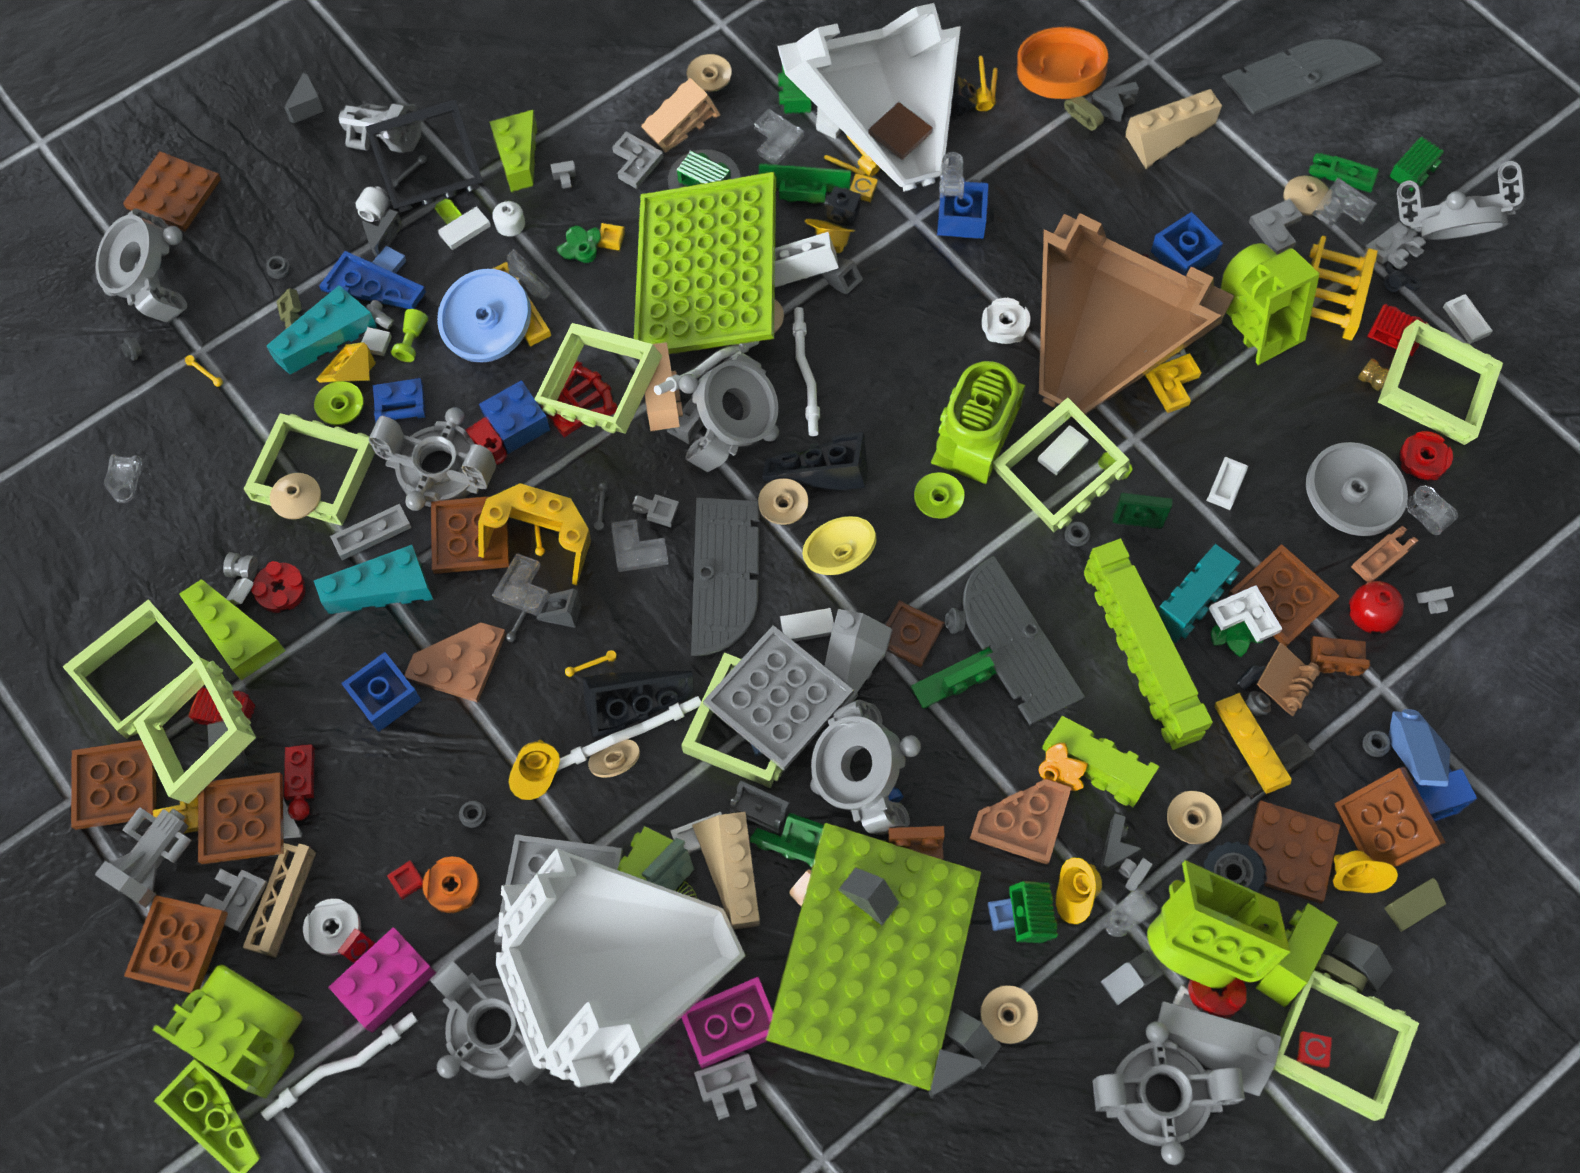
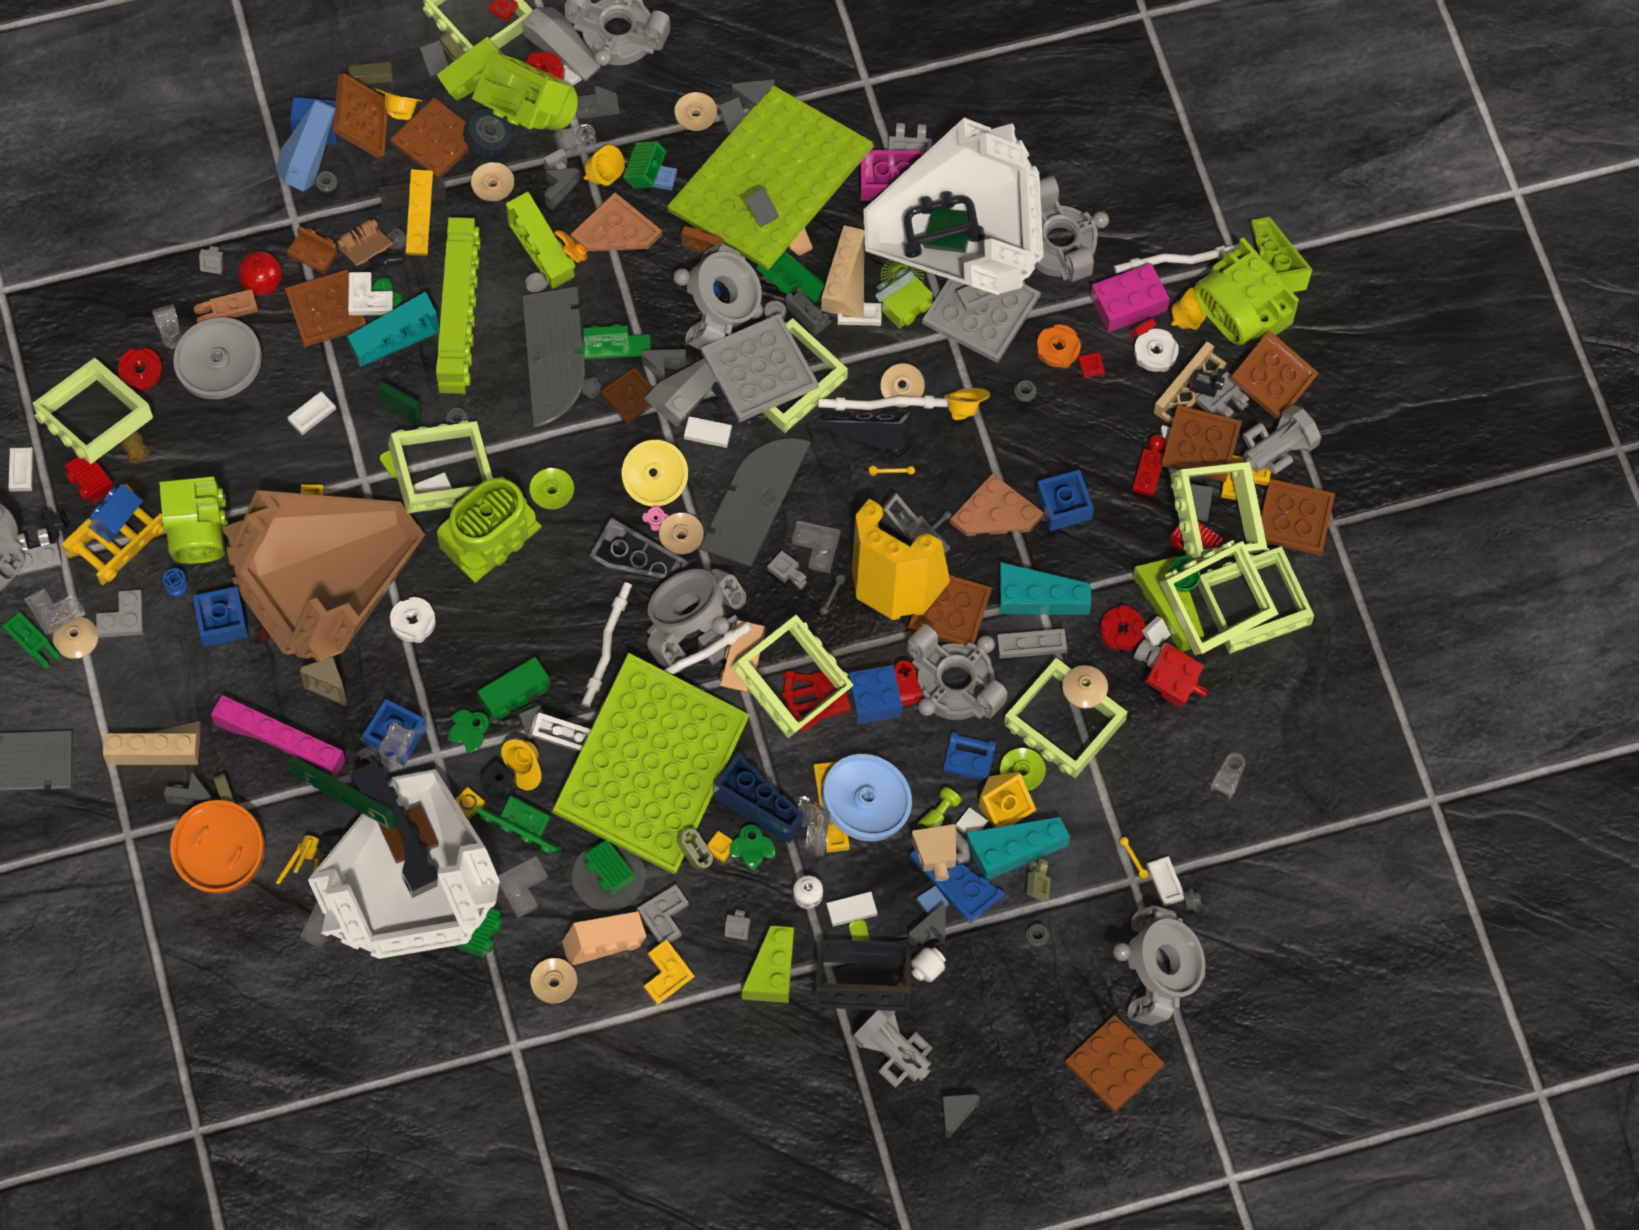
camera: 160 degrees left, 0 degrees up
(146, 605) = (1253, 579): none -> yellowish green window
(165, 360) = (1165, 881): none -> white tile
(202, 549) = (1175, 675): none -> red plate
(213, 635) = (1188, 583): none -> green hair
(252, 895) = (1207, 383): none -> black bracket
(304, 988) = (1188, 312): none -> yellow piece
(397, 289) = (936, 849): none -> tan torso
(590, 276) = (757, 799): none -> dark blue wedge
(609, 114) = (673, 972): none -> yellow plate
(627, 961) = (944, 219): none -> dark green tile
(629, 221) = (694, 849): none -> olive beam
(642, 992) = (926, 206): none -> black bar
(798, 796) = (774, 308): none -> light grey tile
(818, 505) = (649, 517): none -> bright pink plate
(872, 293) = (514, 689): none -> green brick
(897, 247) = (465, 730): none -> green plate
(898, 678) = (659, 359): none -> dark grey slope
(942, 133) = (416, 871): none -> black arch
(977, 129) = (342, 792): none -> dark green tile
(1046, 217) = (324, 680): none -> dark tan slope
(1080, 715) = (536, 282): none -> light grey tile
(1108, 170) = (248, 722): none -> dark pink arch
(1347, 278) = (111, 517): none -> blue brick

